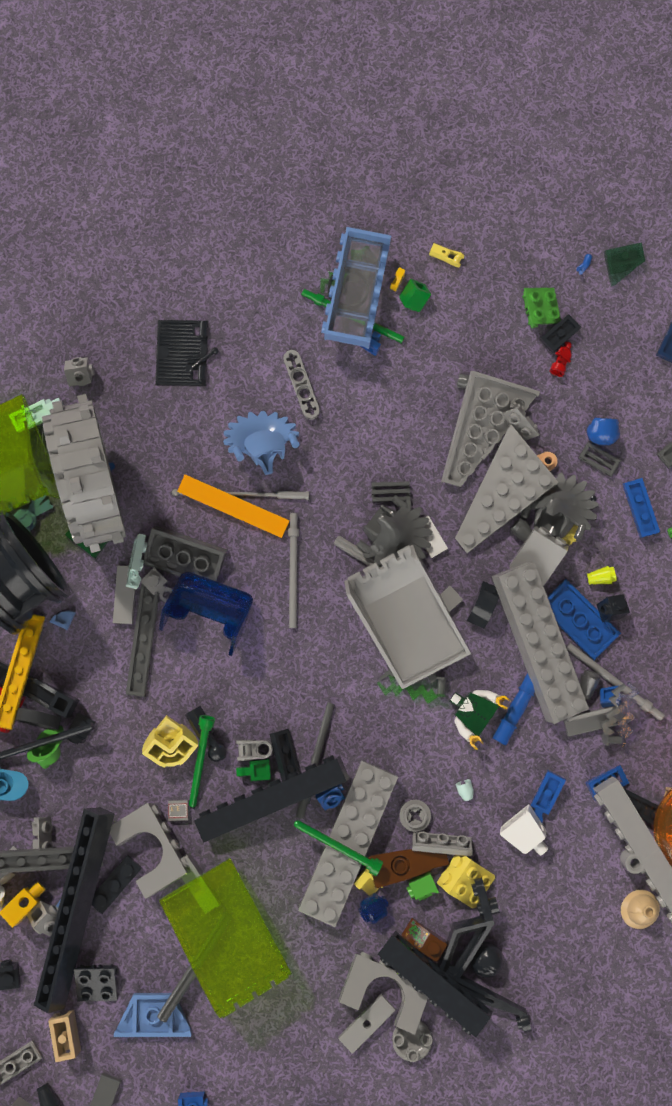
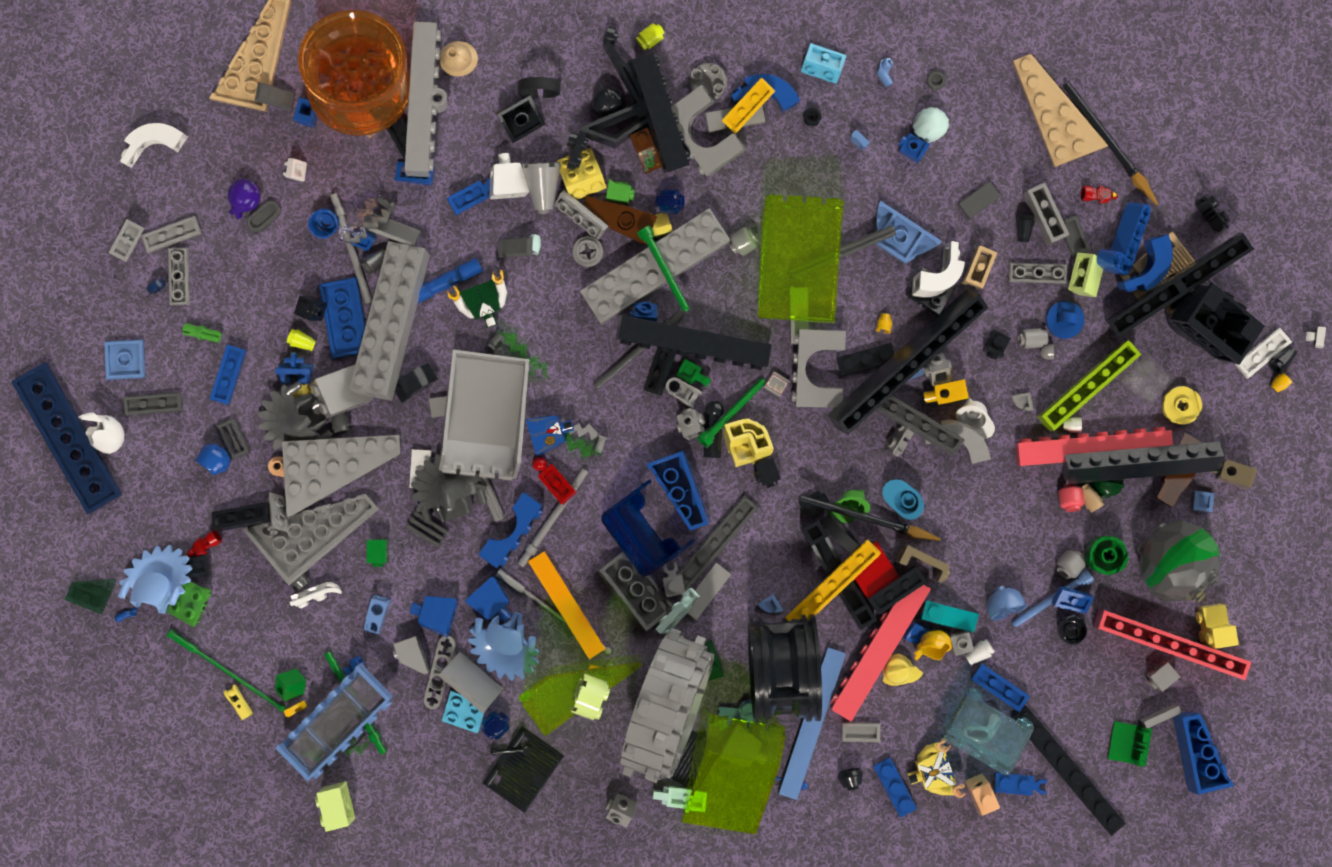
camera: 150 degrees left, 5 degrees up
(87, 1015) = (932, 284): none -> white arch
(119, 927) = (884, 323): none -> yellow hose
(136, 728) = (767, 473): none -> black brick
(153, 437) = (589, 697): none -> yellowish green brick
(179, 441) = (551, 694): none -> clear neon green windscreen
(201, 666) = (681, 488): none -> blue wedge
(222, 723) = (690, 423): none -> light grey brick
(227, 371) = (495, 725): none -> clear blue head
(244, 1079) = (859, 140): none -> medium blue tile
(260, 367) = (462, 713): none -> medium azure hinge
(269, 392) = (471, 682): none -> light grey tile
(287, 917) = (743, 241): none -> light grey head
(298, 468) = (490, 600): none -> blue torso
(300, 1076) = (812, 112): none -> black plate
(312, 224) = (335, 806): none -> yellowish green brick
(312, 601) = (553, 480): none -> red plate
(320, 512) = (526, 510): none -> blue arch
(328, 646) = (585, 451): none -> piece
(333, 383) = (411, 654): none -> light grey slope
(335, 428) = (436, 614): none -> blue torso
(343, 638) = (548, 432): none -> blue torso
(357, 1074) = (784, 94): none -> blue arch
(361, 1044) = (748, 105): none -> yellow plate
(384, 396) = (376, 614): none -> medium blue leg
(418, 446) = (377, 552): none -> green brick
(441, 380) = (319, 593): none -> white piece
(478, 777) = (515, 247): none -> dark grey tile
(489, 1046) = (650, 36): none -> neon yellow brick
(493, 848) = (542, 184): none -> light grey cone
(512, 273) = (192, 648): none -> green piece
(548, 400) = (240, 517): none -> black plate
(551, 893) = (520, 118): none -> black slope
(564, 929) = (529, 85): none -> black tyre
(580, 306) = (156, 578): none -> light blue piece
(592, 550) = (295, 367): none -> blue hips
(660, 689) = (323, 216): none -> blue hair

